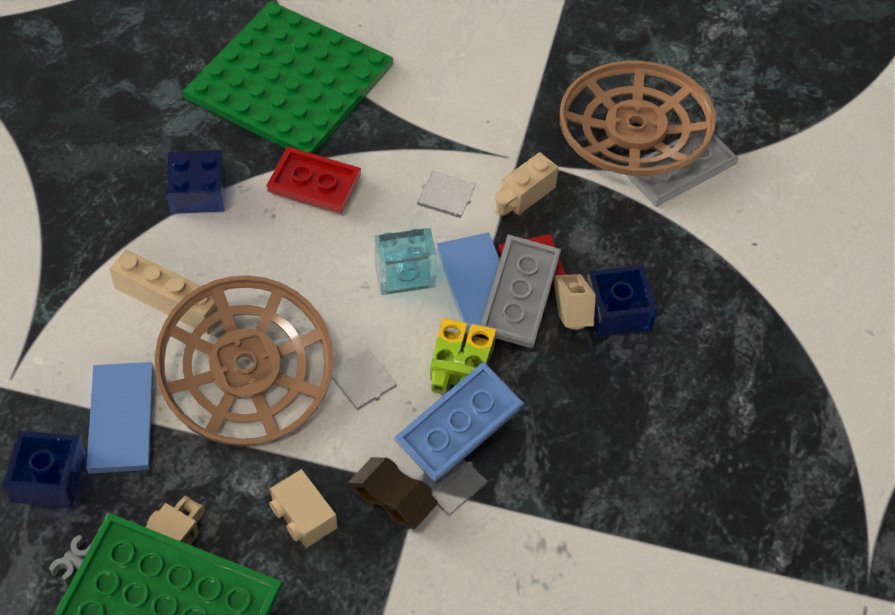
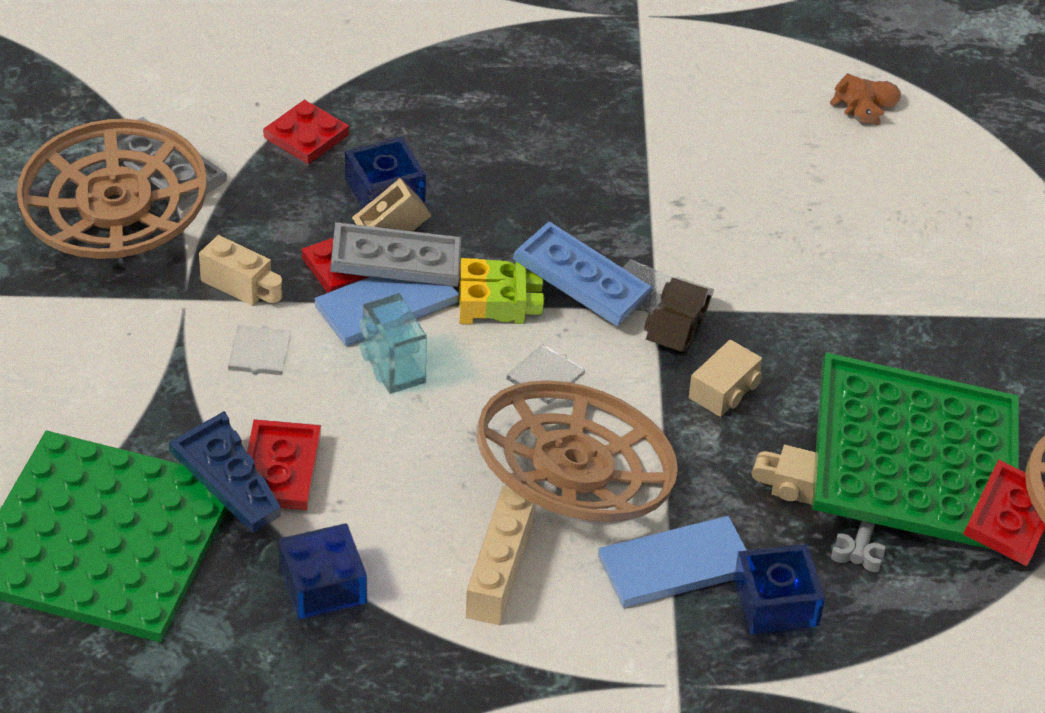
camera: 105 degrees left, 10 degrees down
(308, 135) = (222, 465): none -> dark blue wing
(707, 268) = (306, 131): none -> red plate

